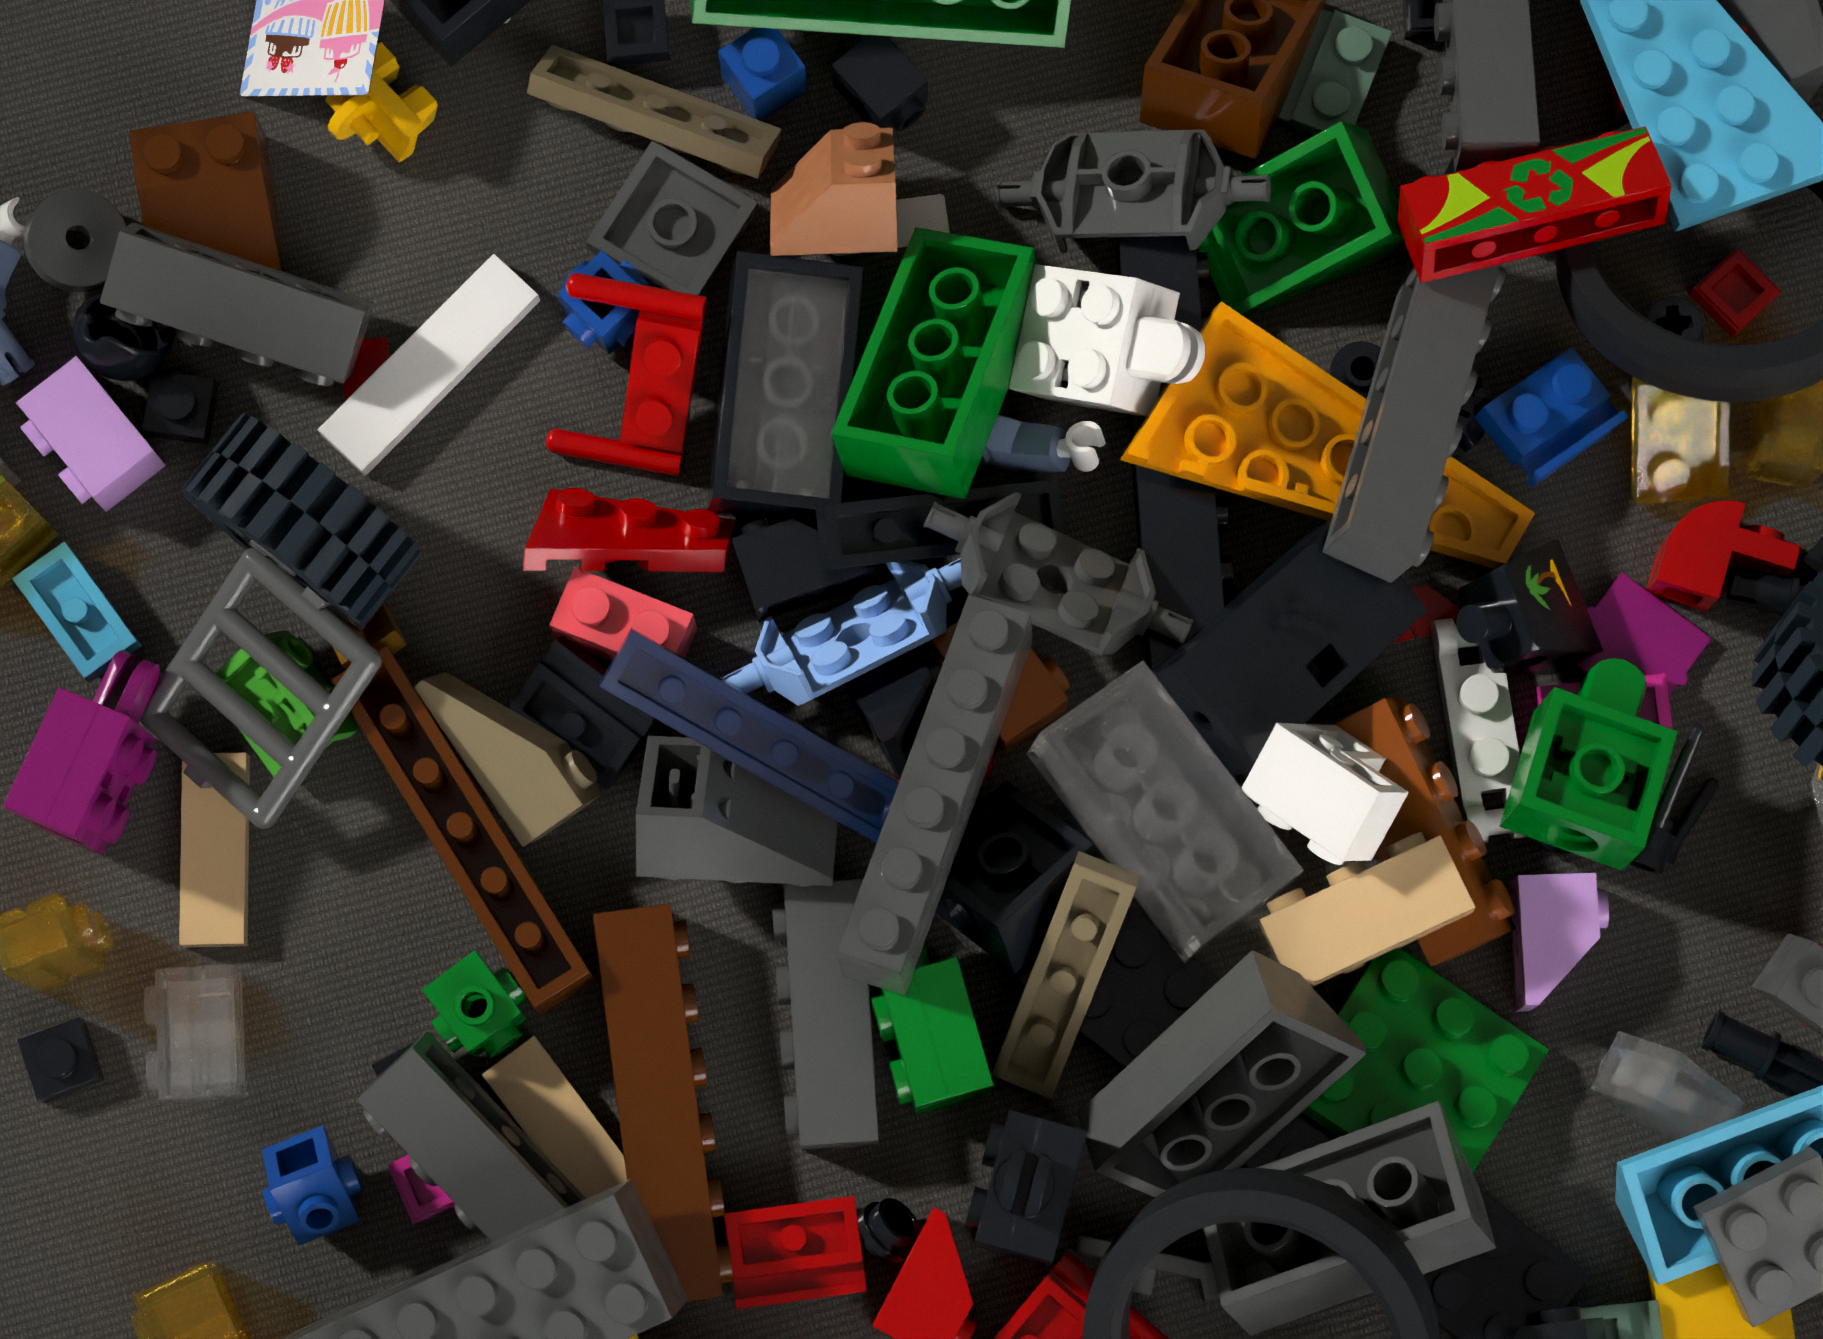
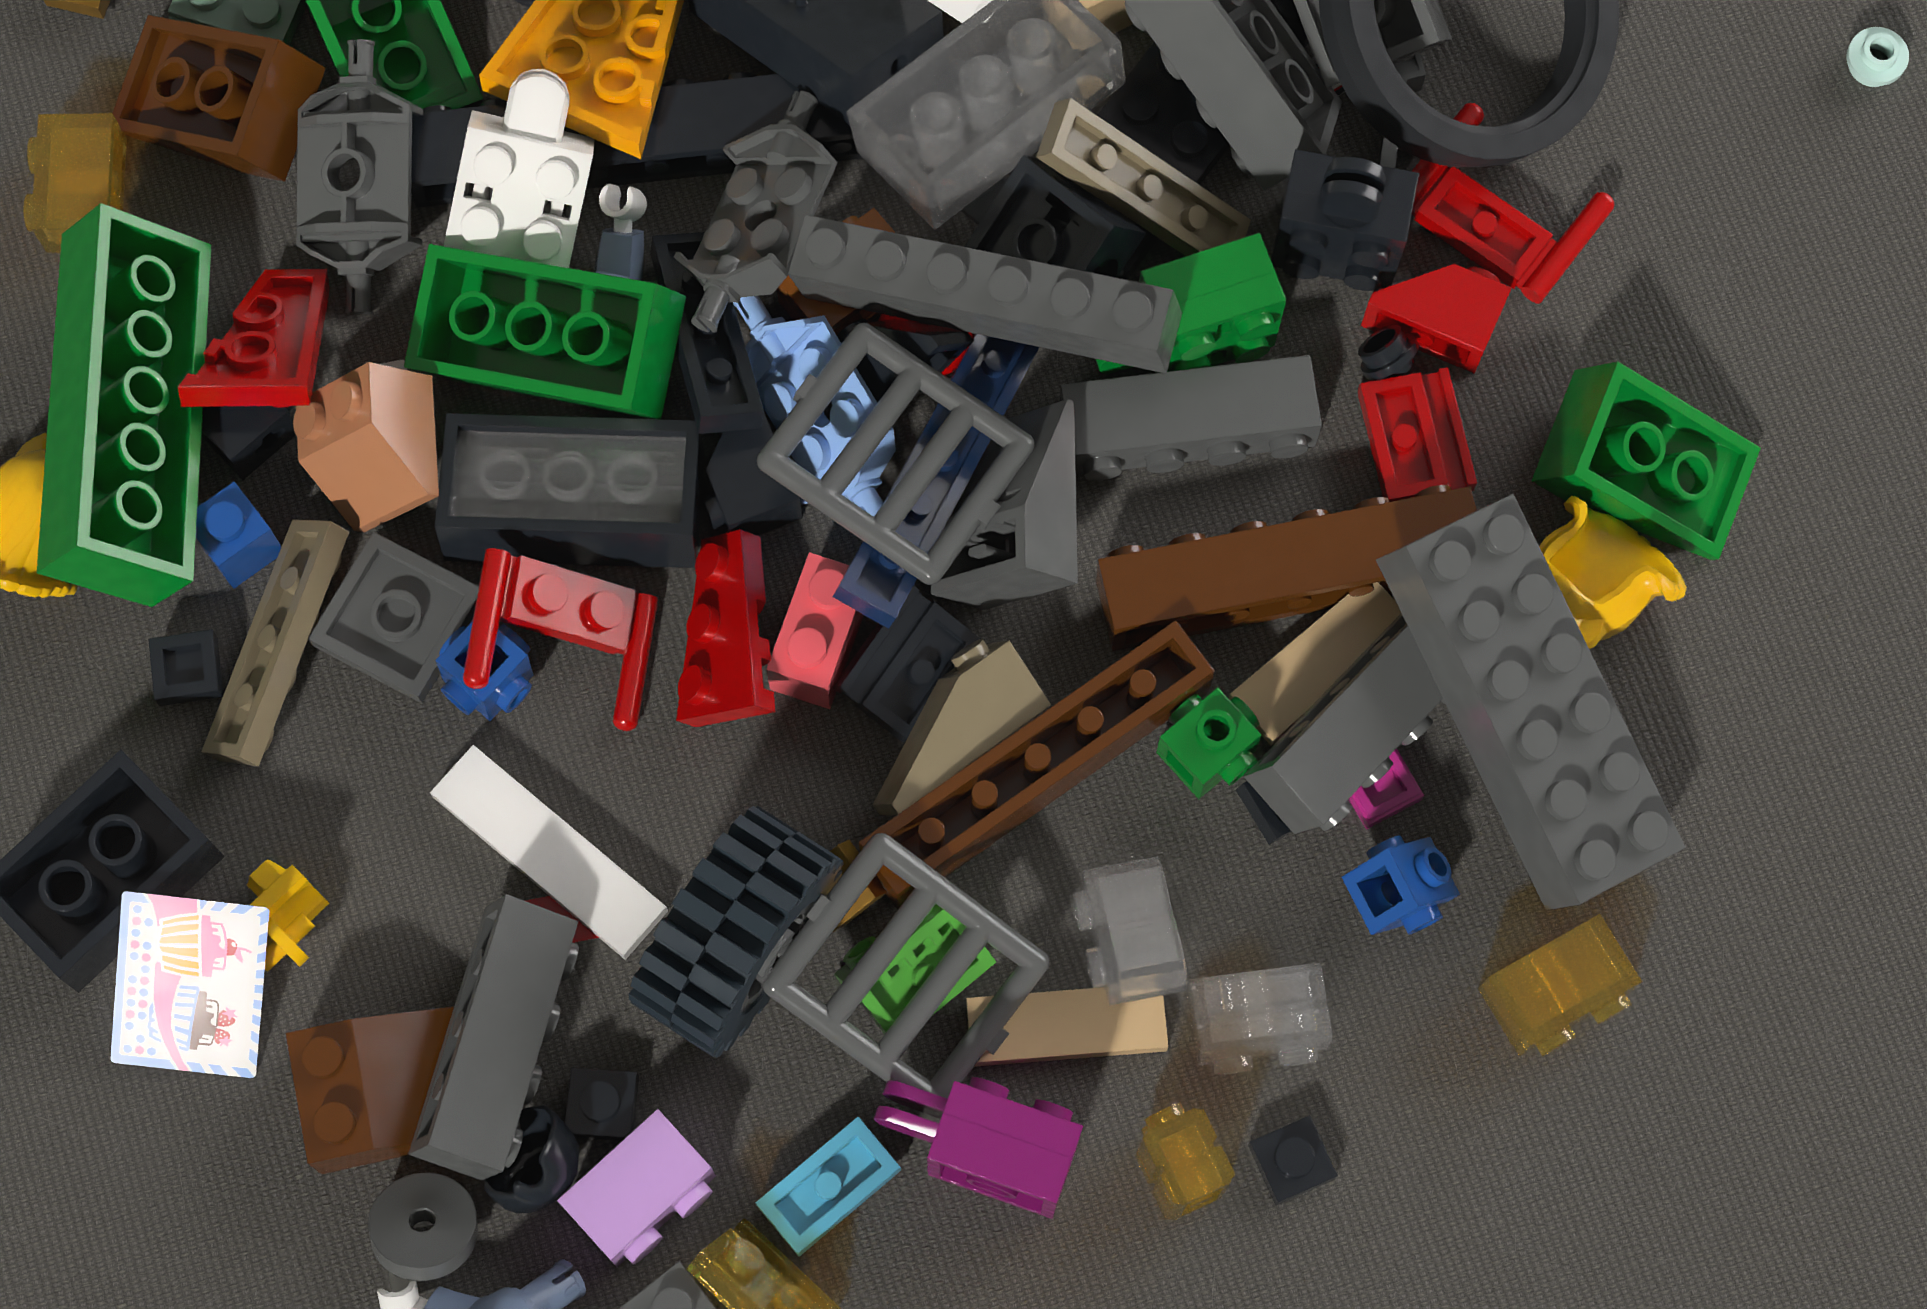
camera: 95 degrees left, 5 degrees down
(291, 914) = (1132, 931): none -> clear brick
(816, 769) = (880, 530): none -> dark grey bar
(946, 103) = (269, 349): none -> red wing

